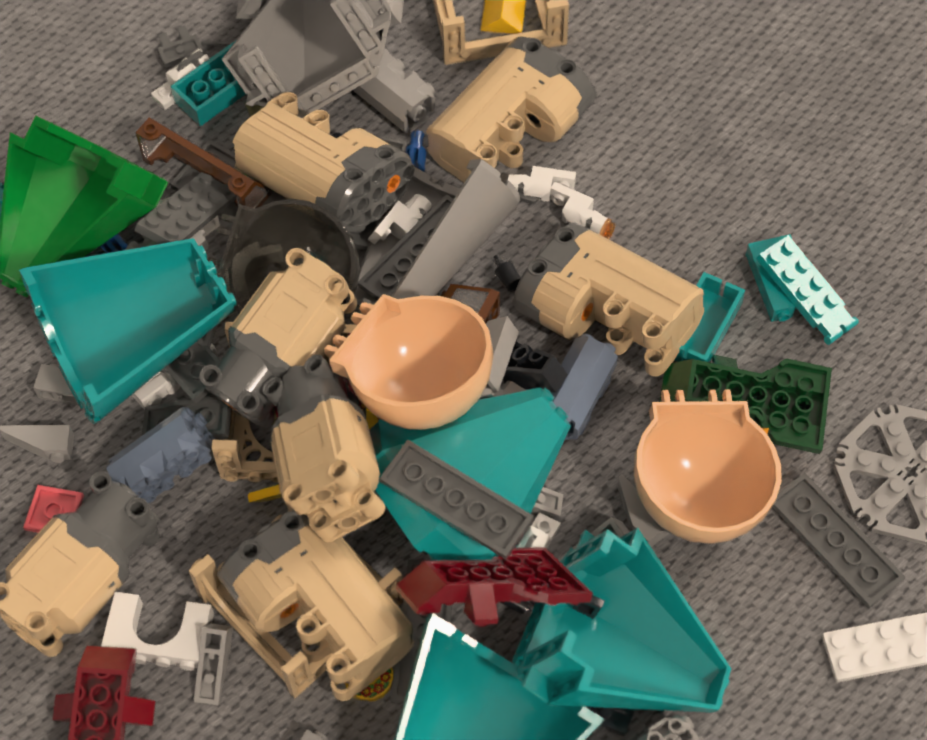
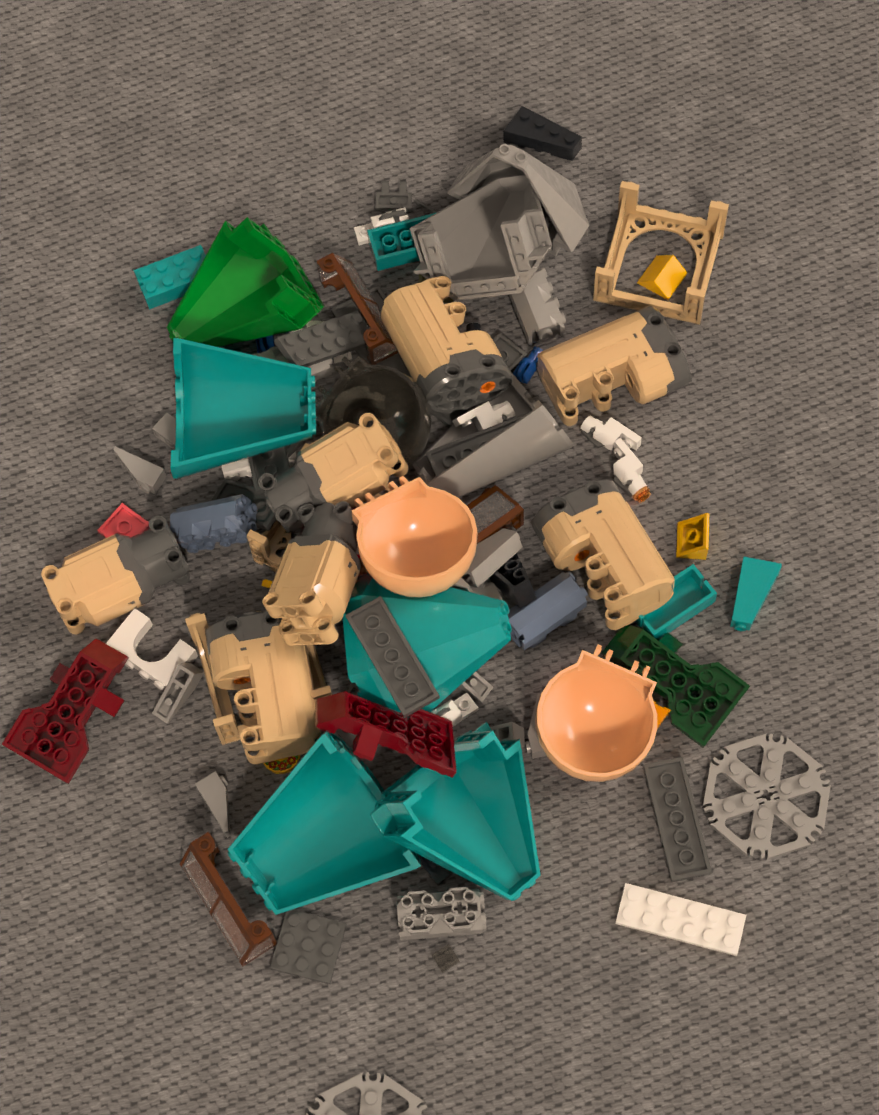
camera: 30 degrees right, 5 degrees up
(506, 272) = (545, 492): black piece -> none
(590, 608) = (462, 778): black tile -> none
(685, 248) = (693, 537): none -> yellow slope
(807, 289) = (768, 614): hinge -> none

